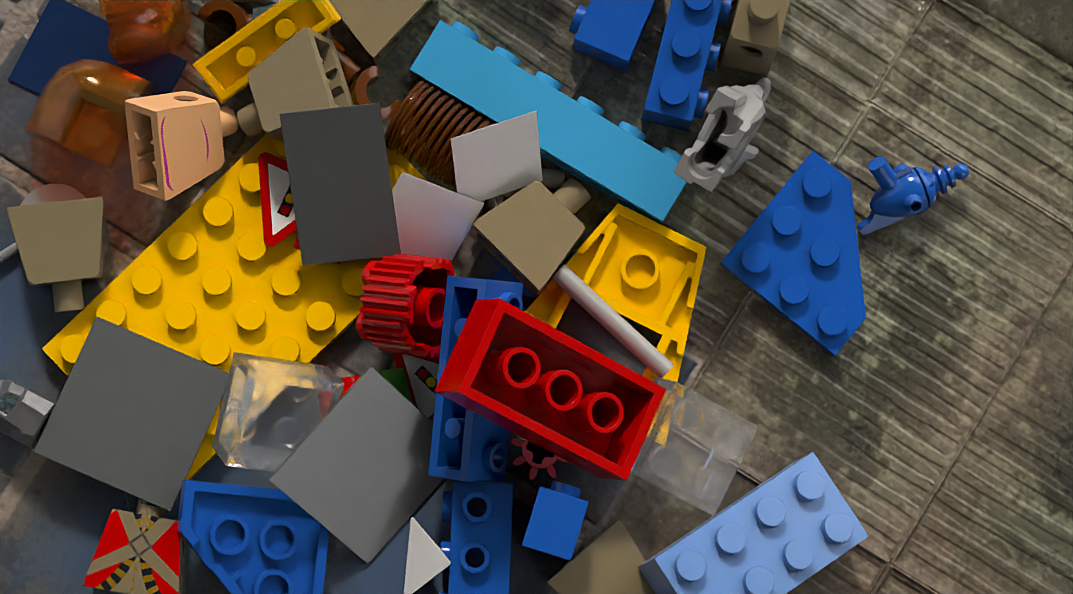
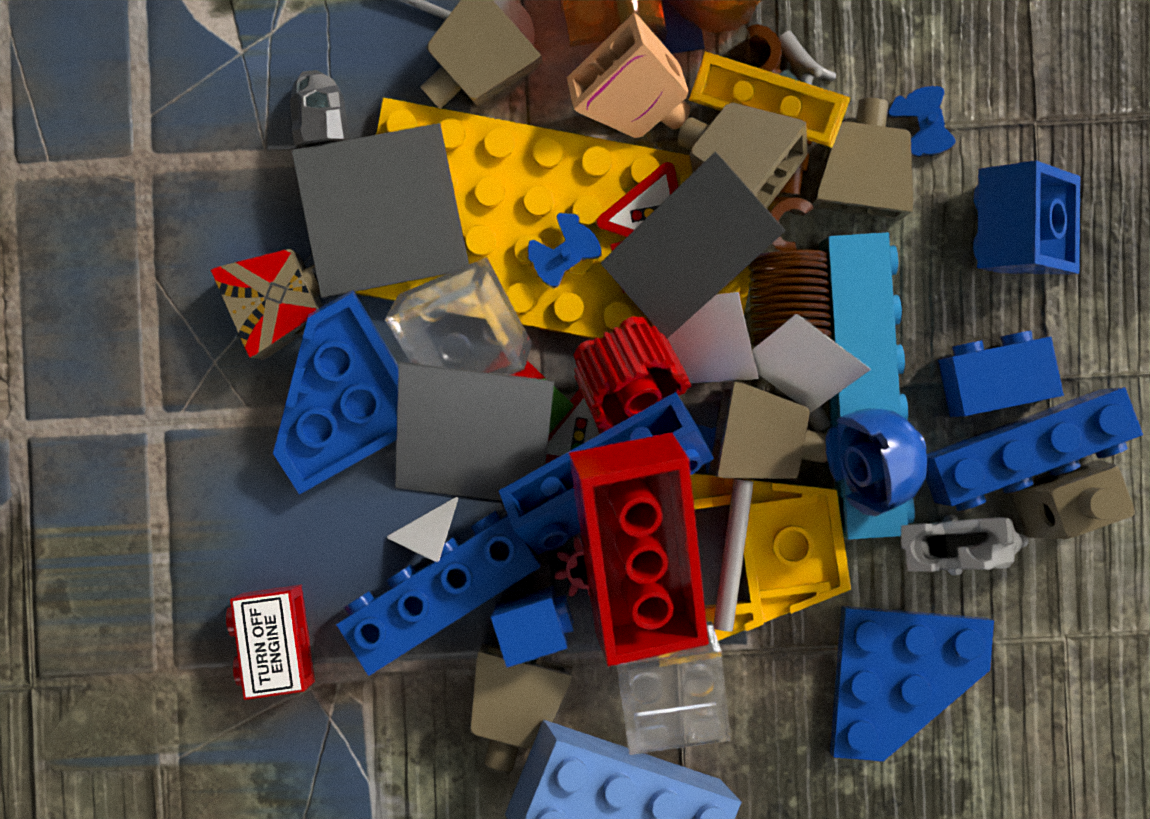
camera: 60 degrees right, 5 degrees up
(276, 273) = (578, 245): none -> blue piece
(609, 153) = (878, 459): none -> blue cylinder
(905, 191) = (1014, 723): blue piece -> none

